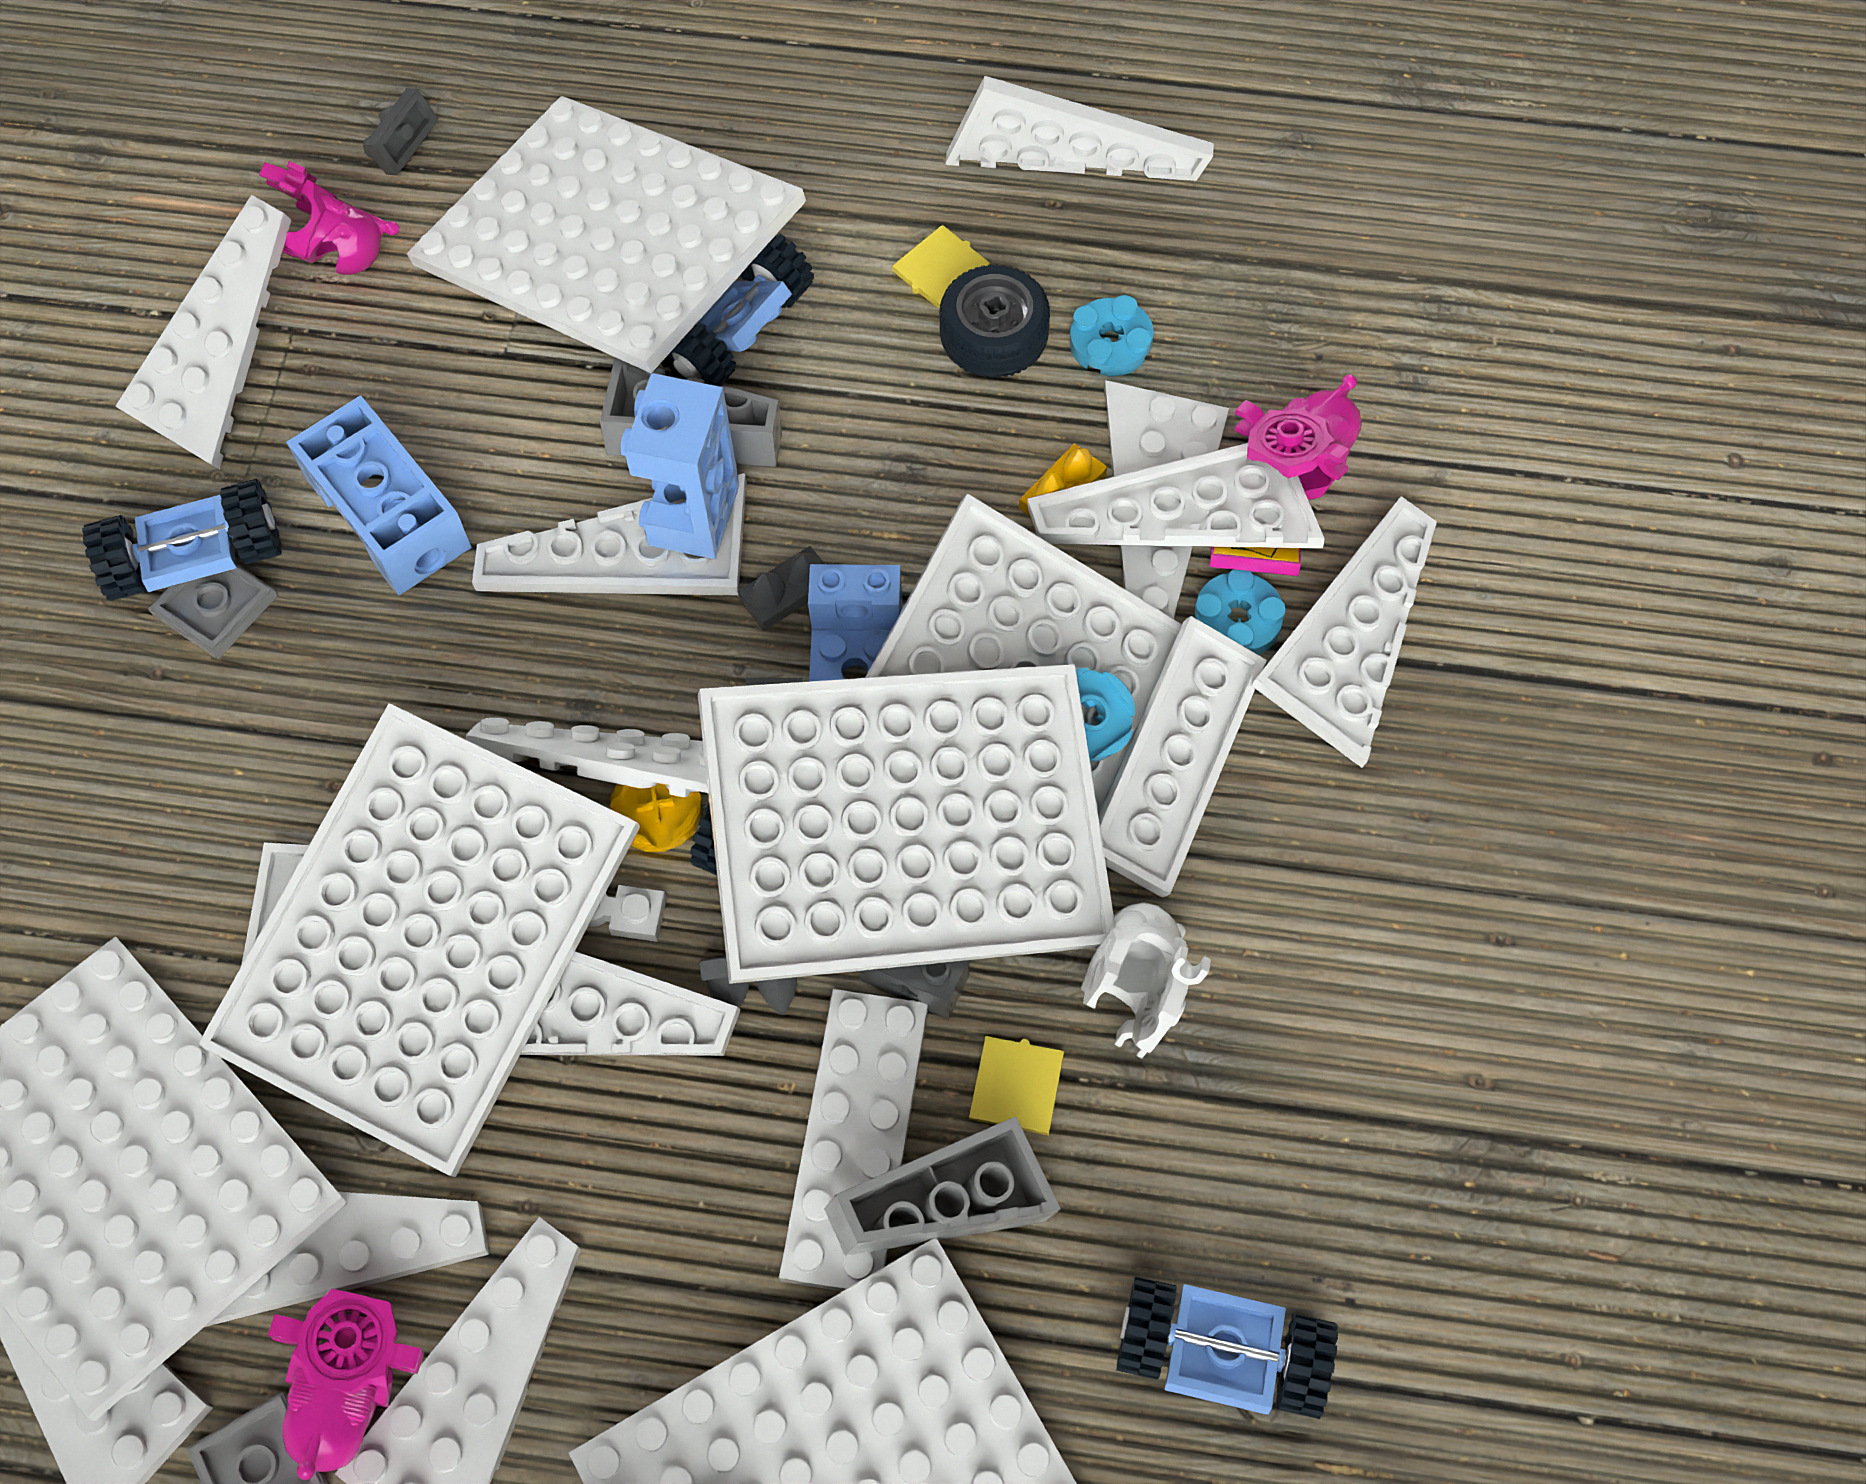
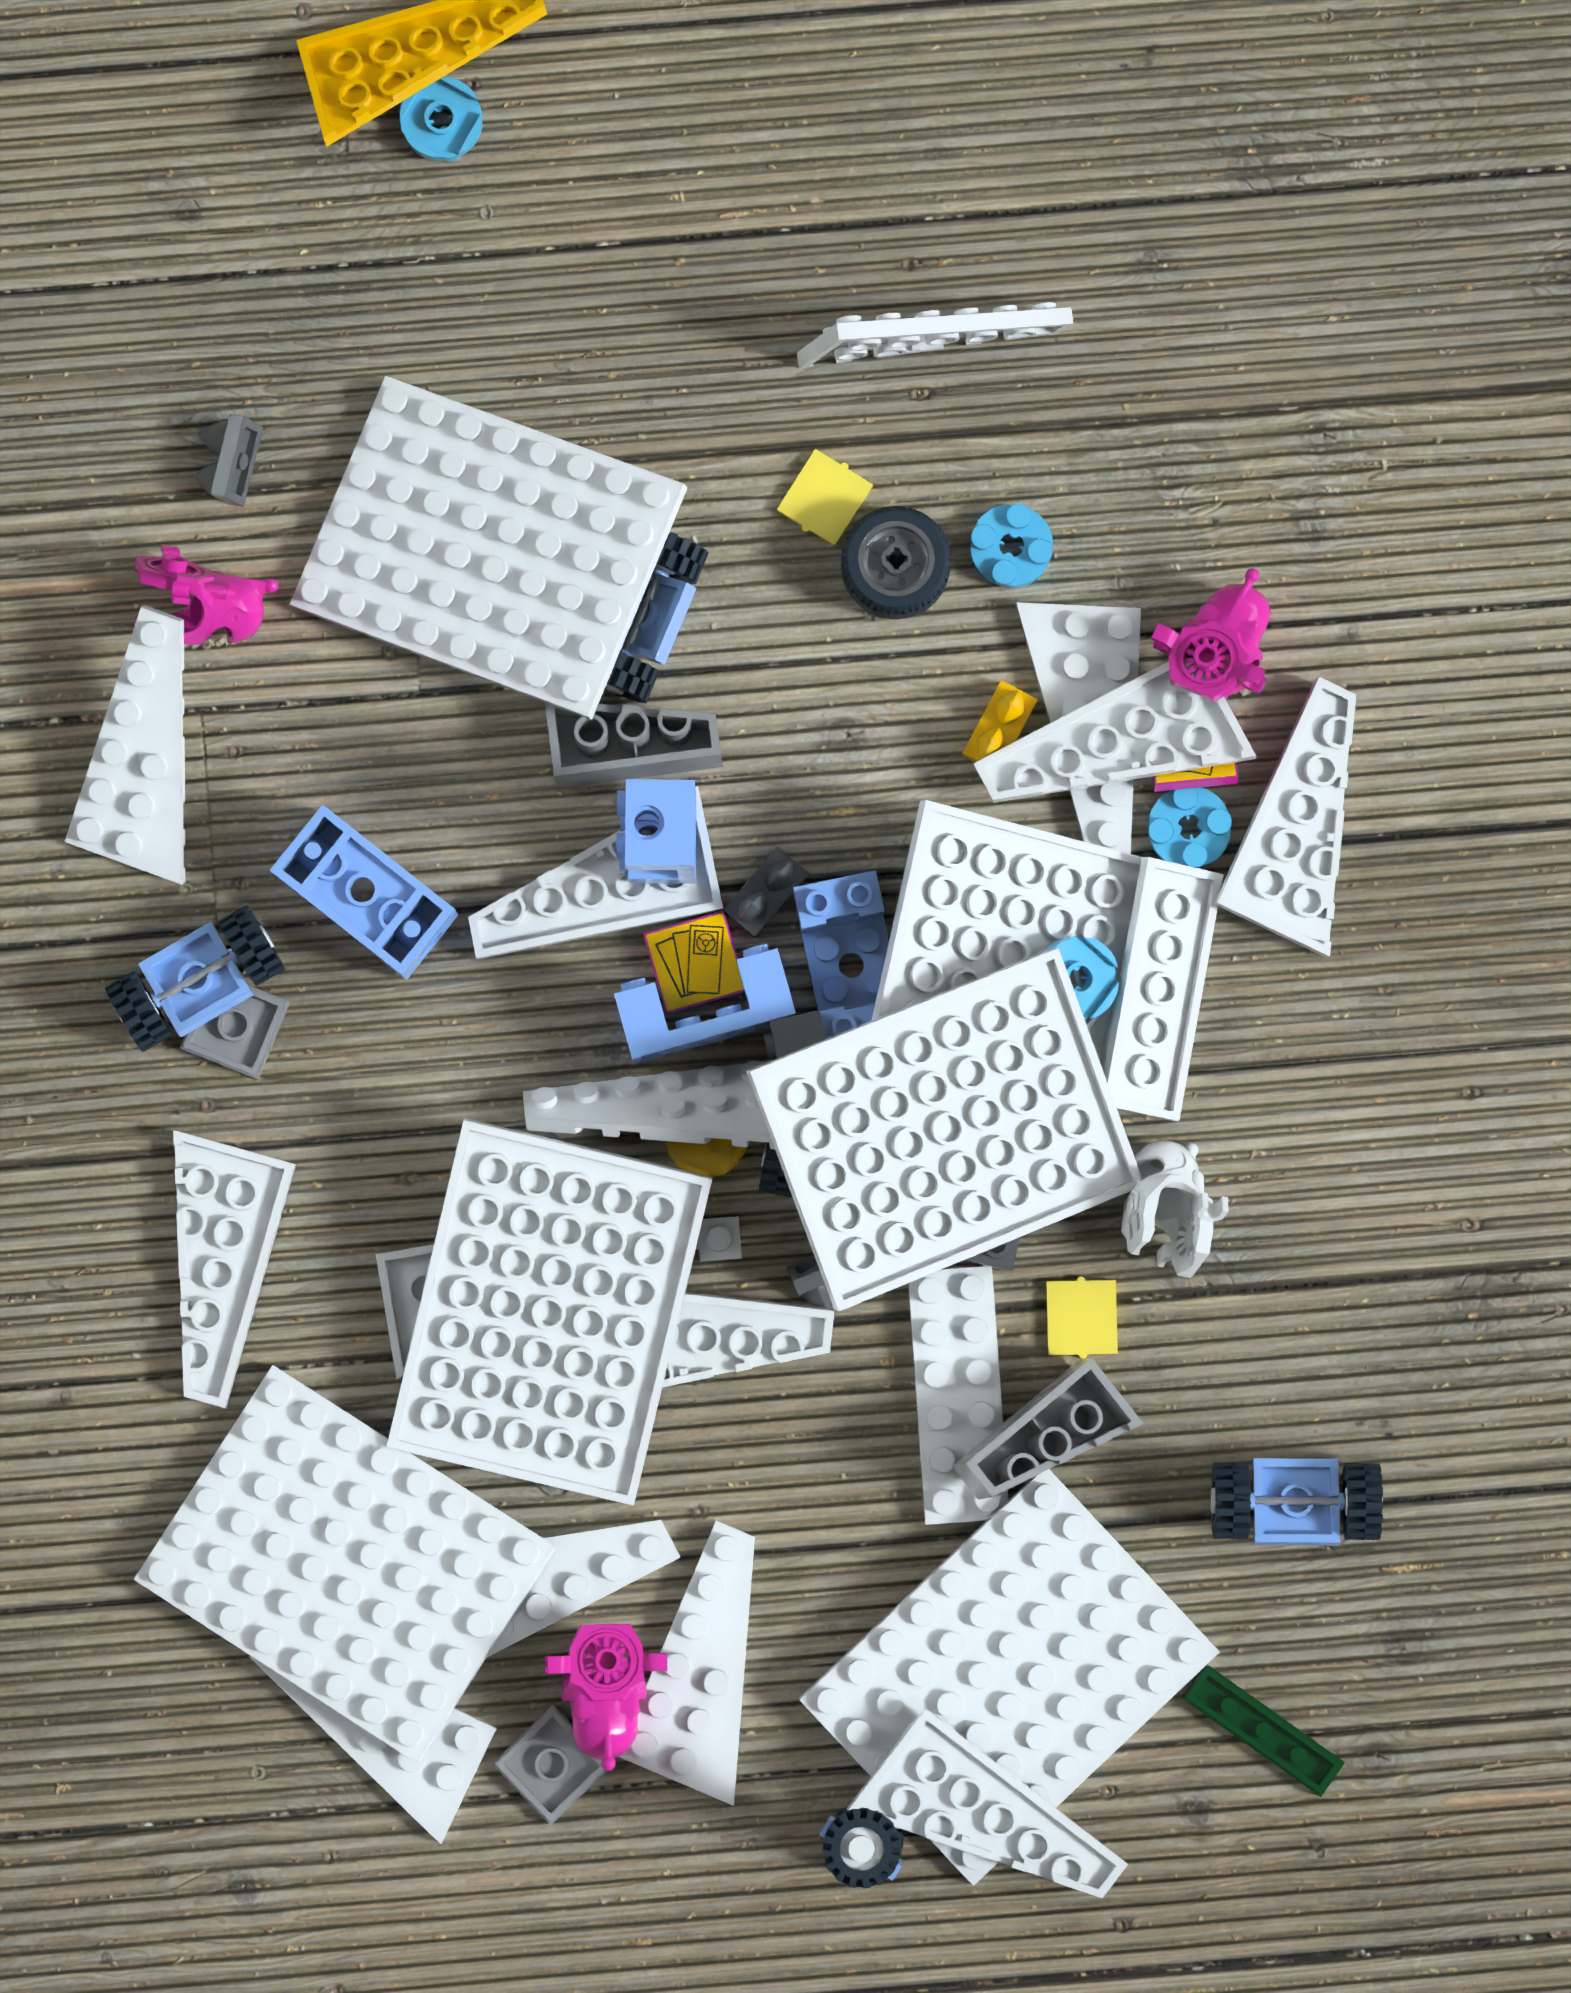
camera: 15 degrees left, 20 degrees up
(111, 808) = (225, 1237): none -> white wing
(637, 692) = (646, 1025): none -> light blue plate
(694, 638) = (694, 962): none -> yellow tile

